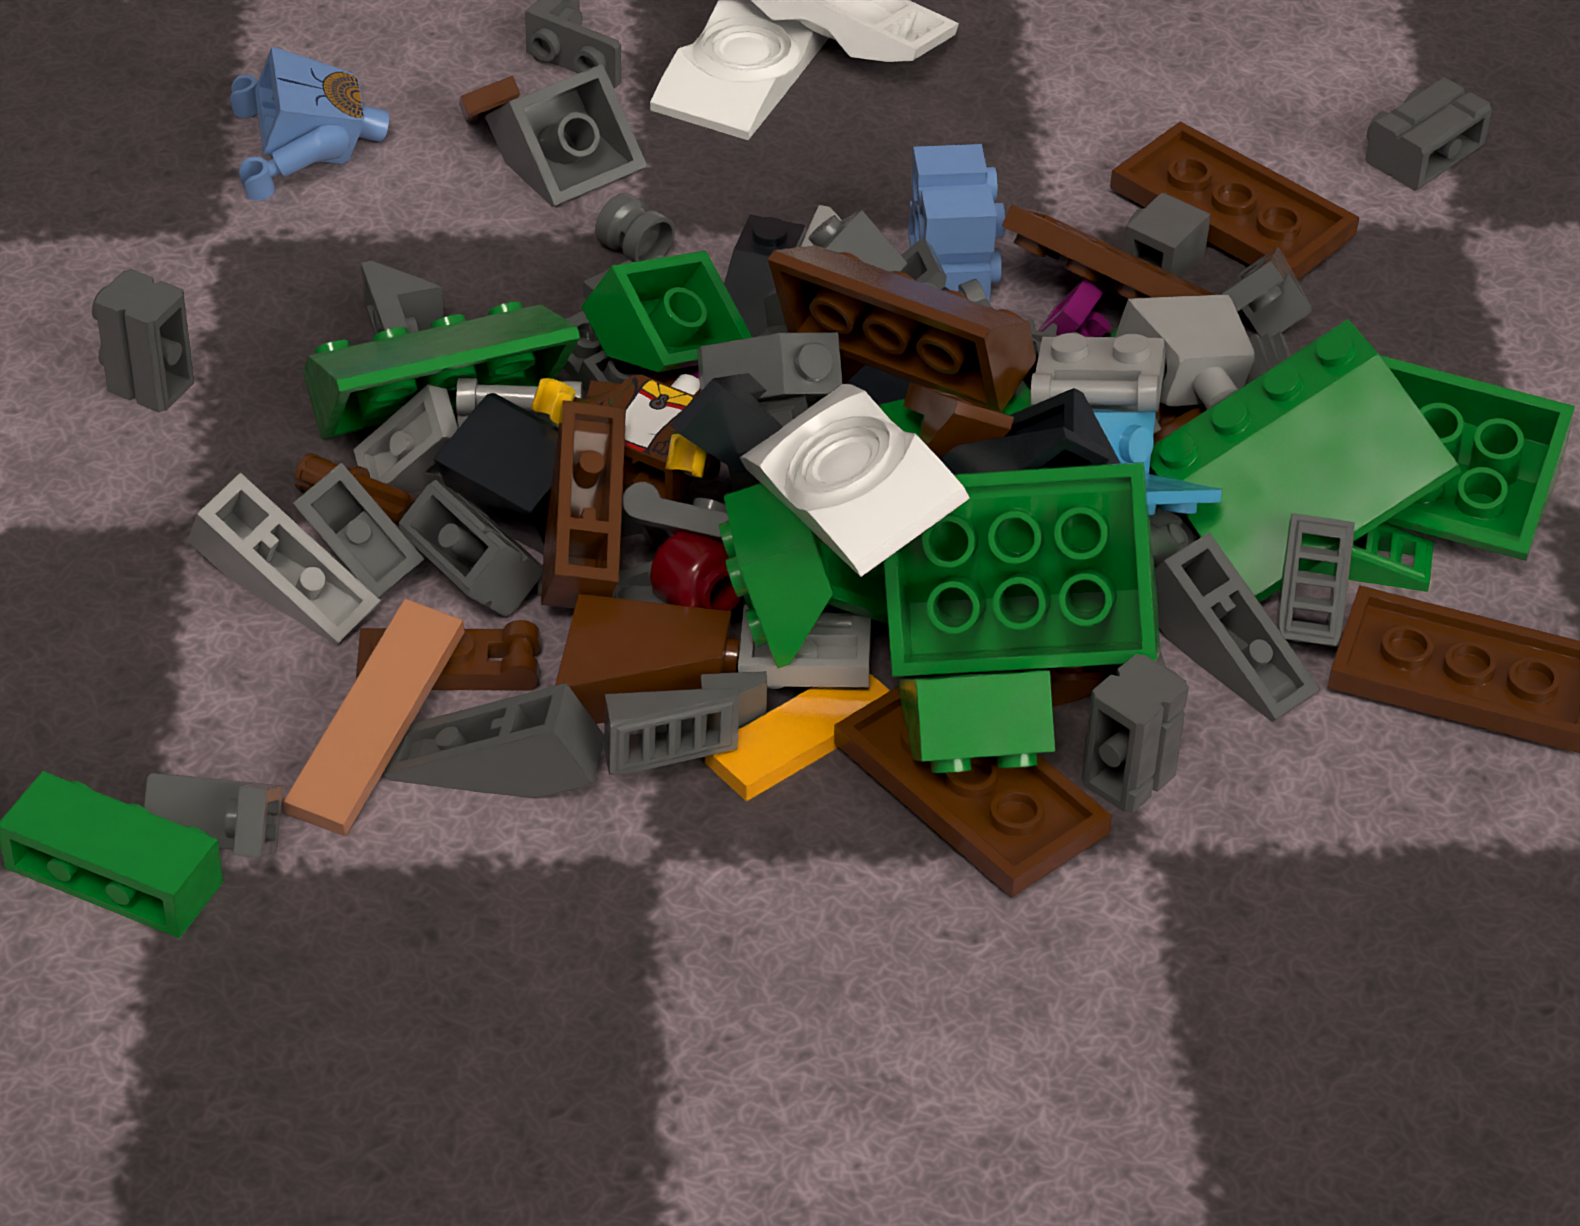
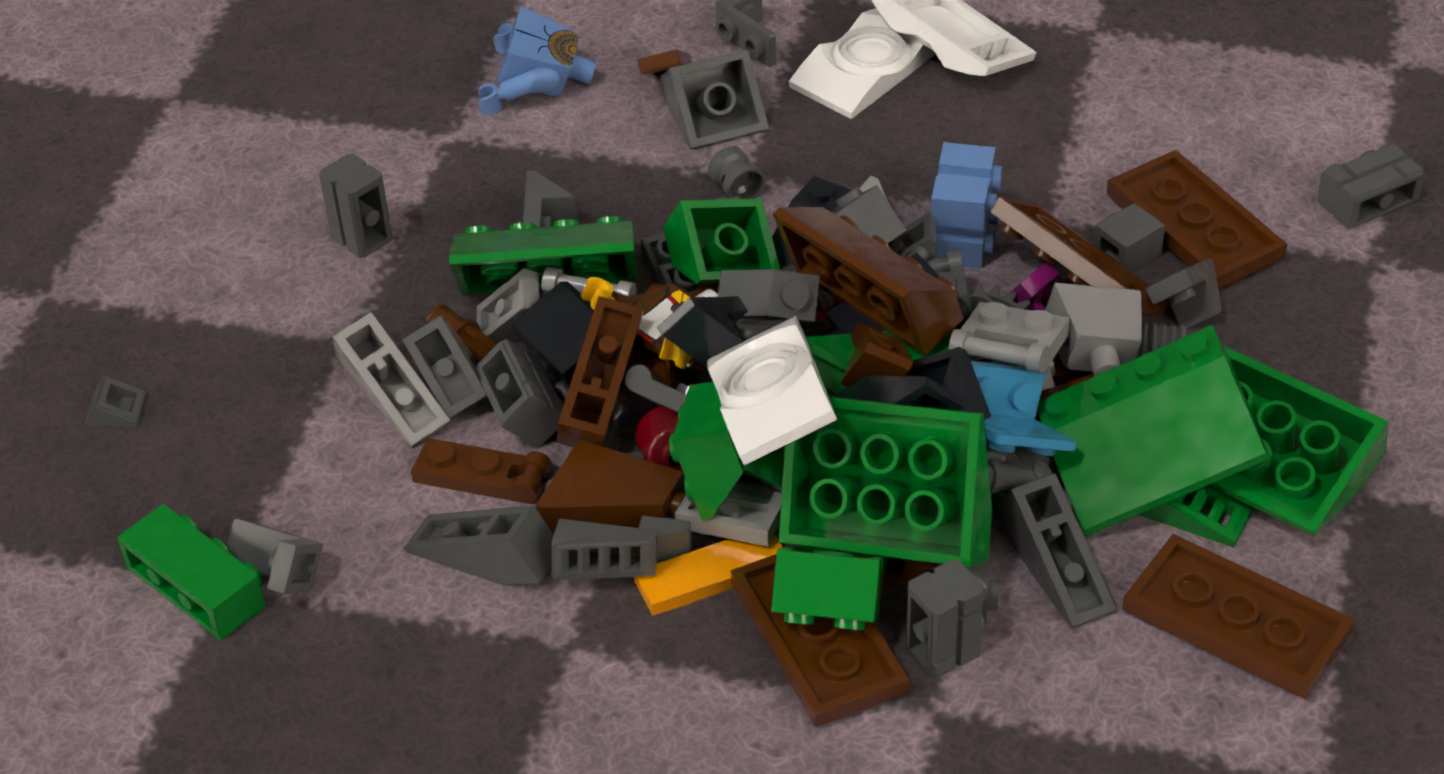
camera: 20 degrees right, 0 degrees up
(374, 717) = (407, 505): nougat tile -> none
(1305, 632) = (1110, 536): dark grey slope -> none

